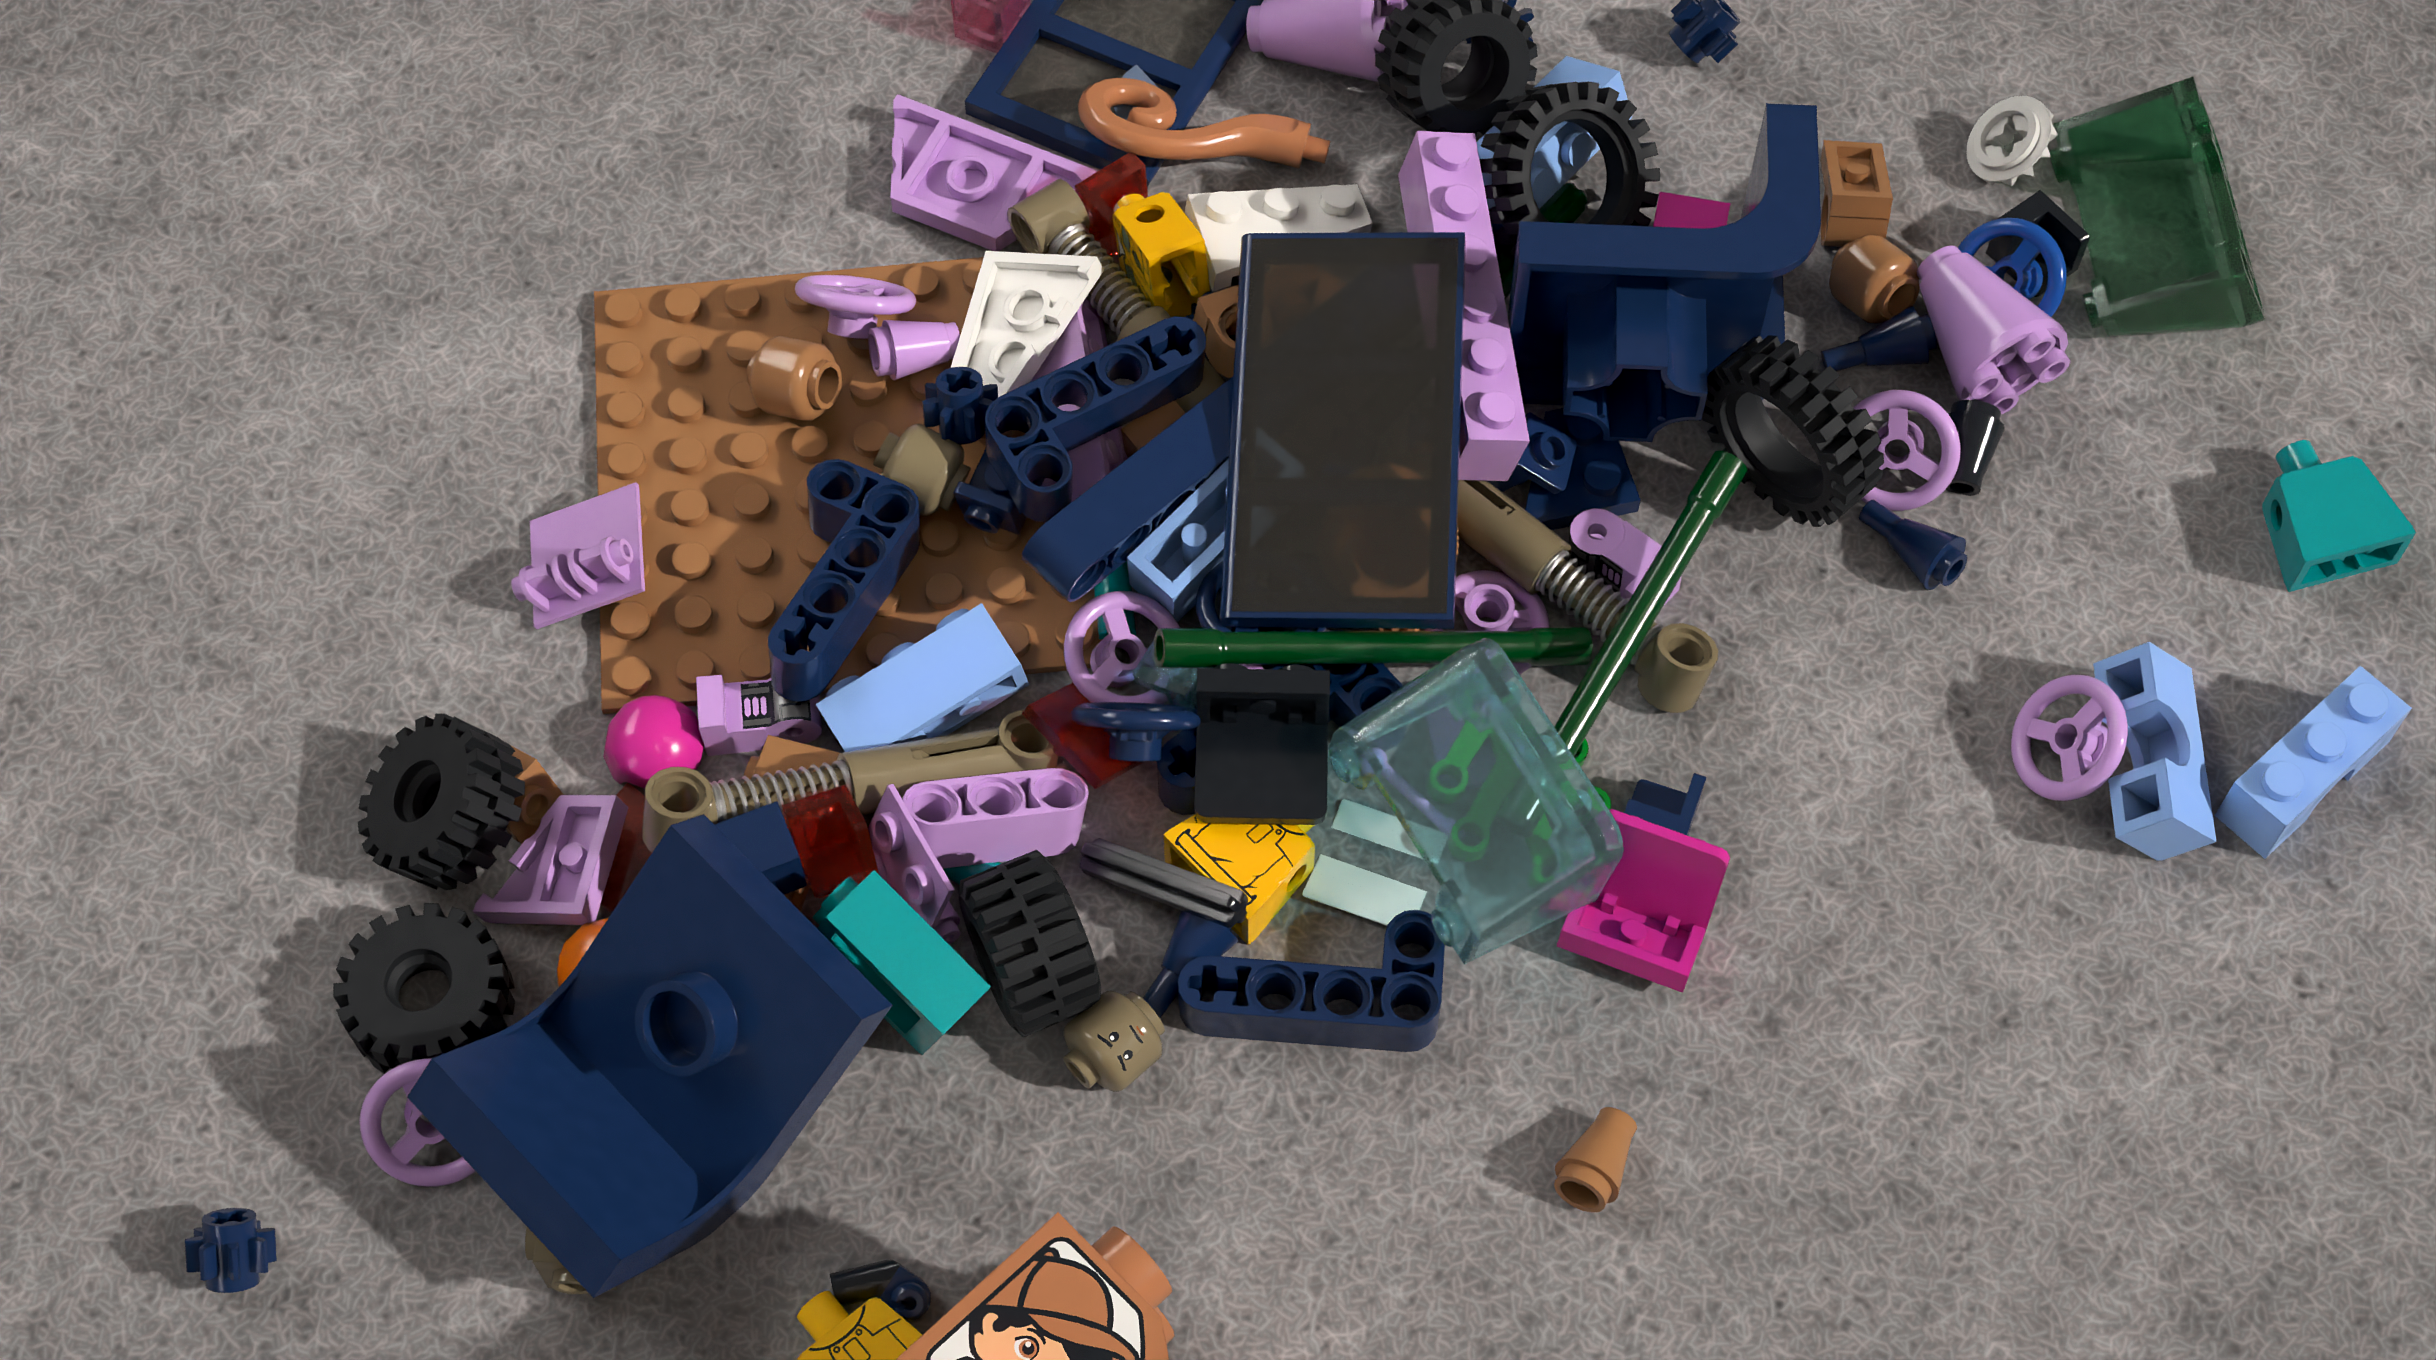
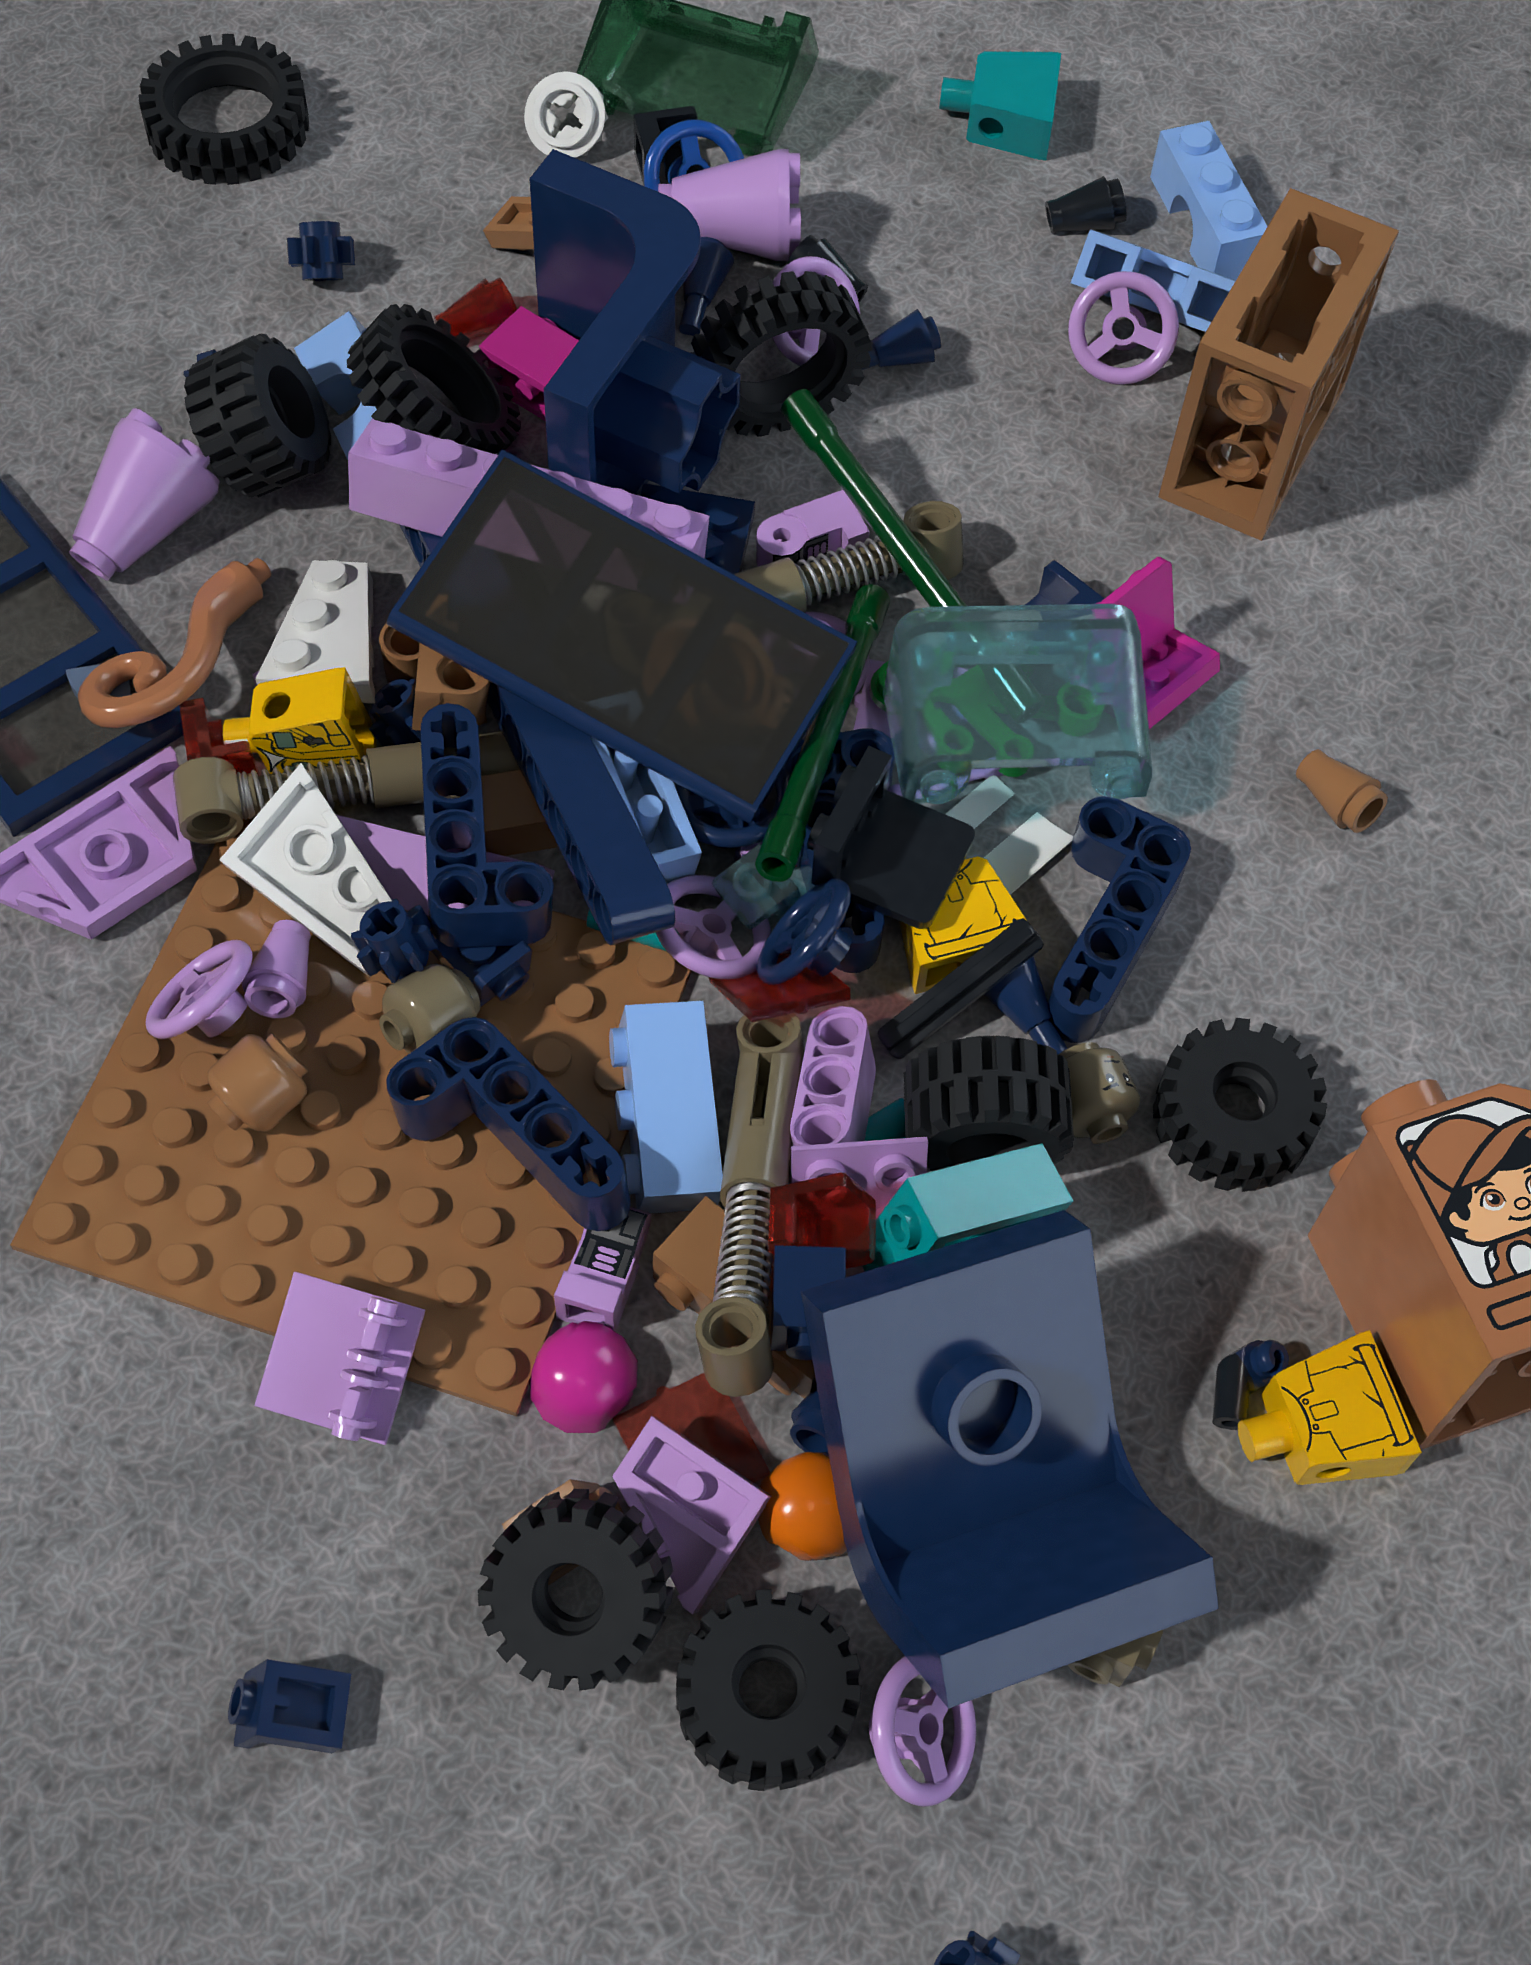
camera: 70 degrees left, 0 degrees up
(284, 656) = (290, 1706): none -> dark blue bracket
(1175, 1127) = (1231, 1145): none -> black tyre
(1715, 177) = (480, 309): none -> clear red cone
(2057, 872) = (1275, 363): none -> medium nougat piece
(2234, 652) = (1092, 207): none -> black cone

